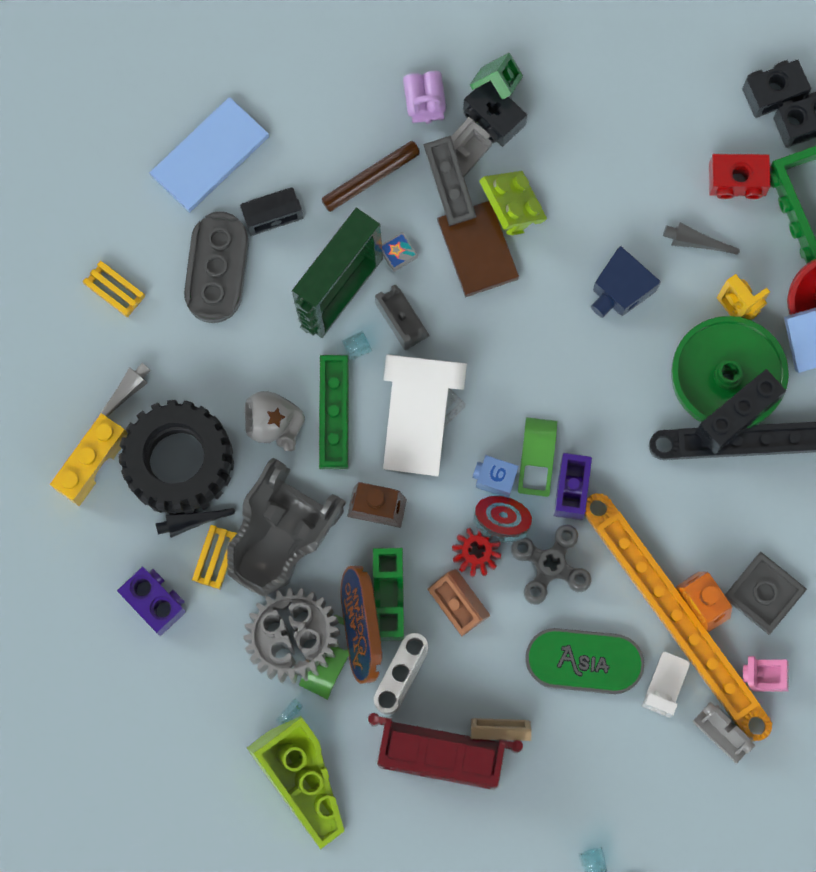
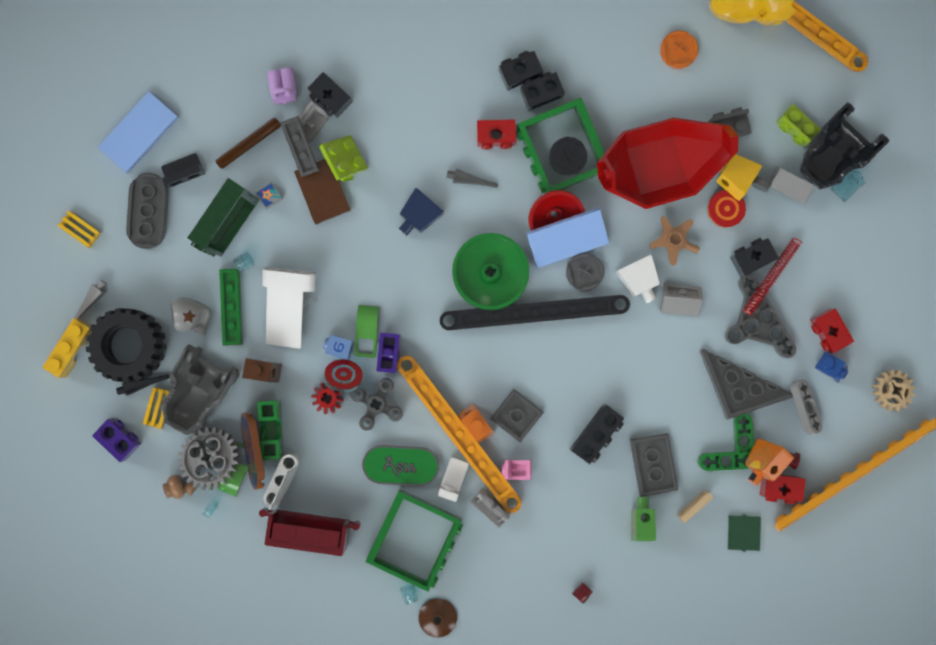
camera: 10 degrees left, 10 degrees up
(238, 680) = (175, 489): none -> medium nougat animal
(296, 769) = (216, 546): lime wedge -> none
(401, 317) = (272, 241): dark grey hinge -> none
(458, 602) = (318, 430): nougat slope -> none
(500, 729) = (347, 513): tan tile -> none
(502, 73) = (331, 69): panel -> none
(655, 788) = (440, 561): none -> green window
(738, 298) = (494, 220): yellow bracket -> none
(740, 411) = (496, 300): black brick -> none

